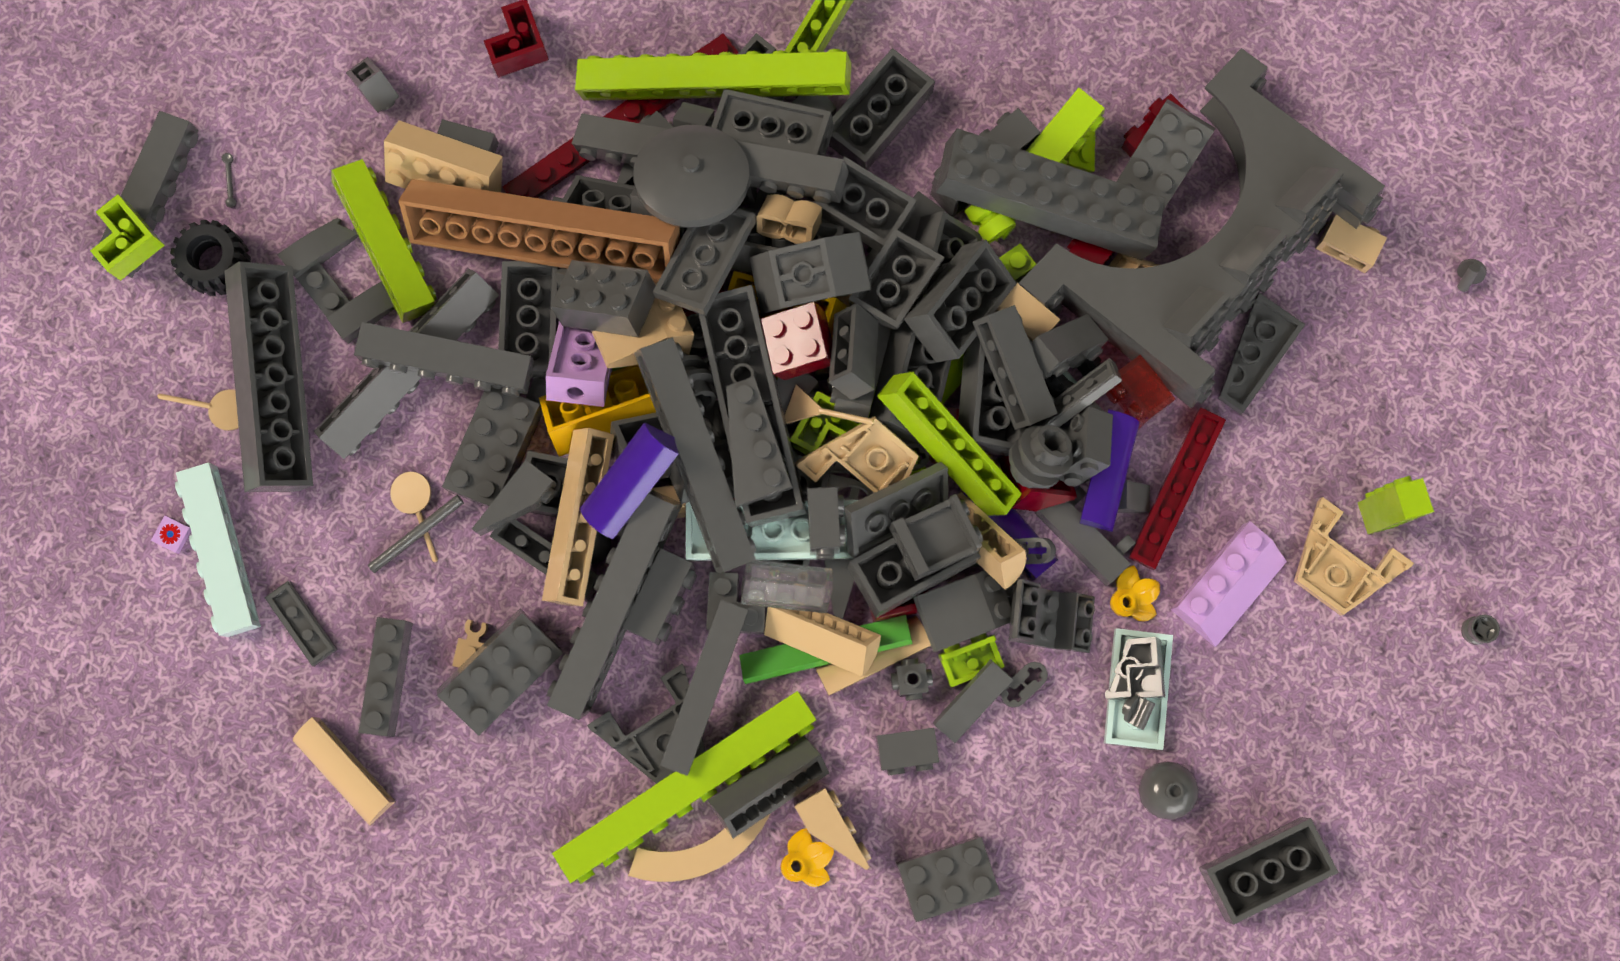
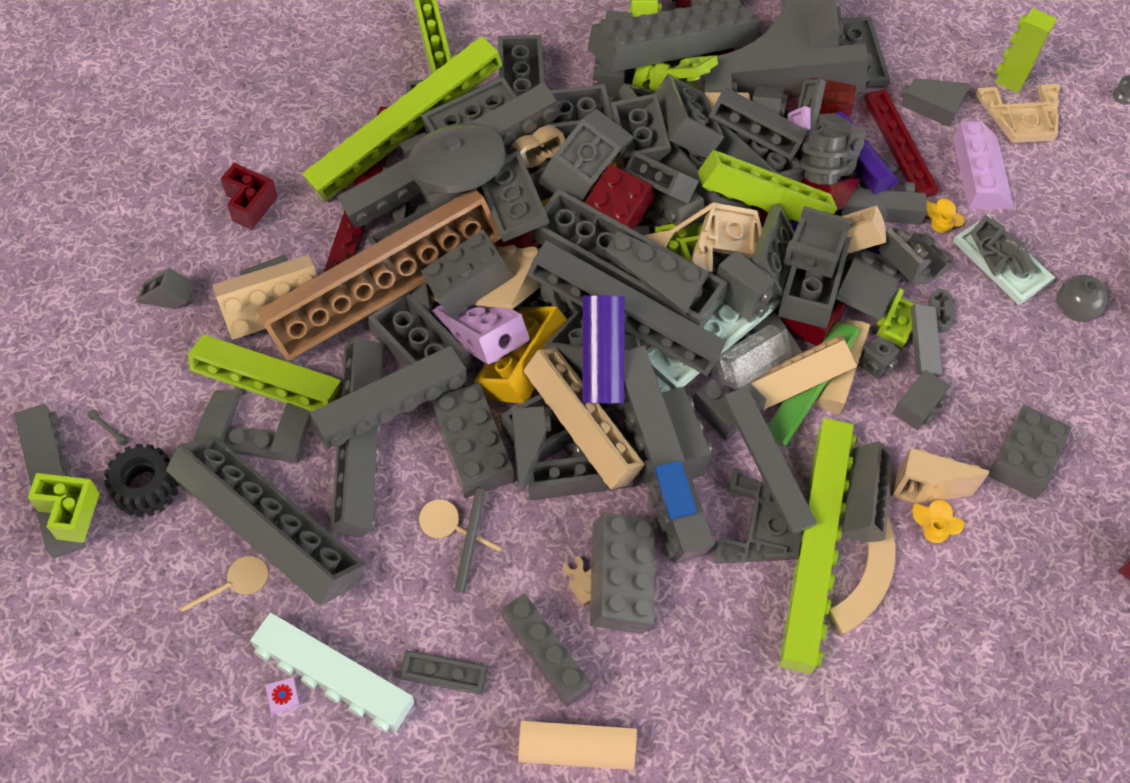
camera: 45 degrees left, 20 degrees down
(582, 650) = (675, 490): none -> blue tile
(1023, 248) = (692, 67): none -> lime plate
(1065, 395) = (801, 117): none -> lavender tile
(1266, 472) = (935, 98): none -> dark grey slope

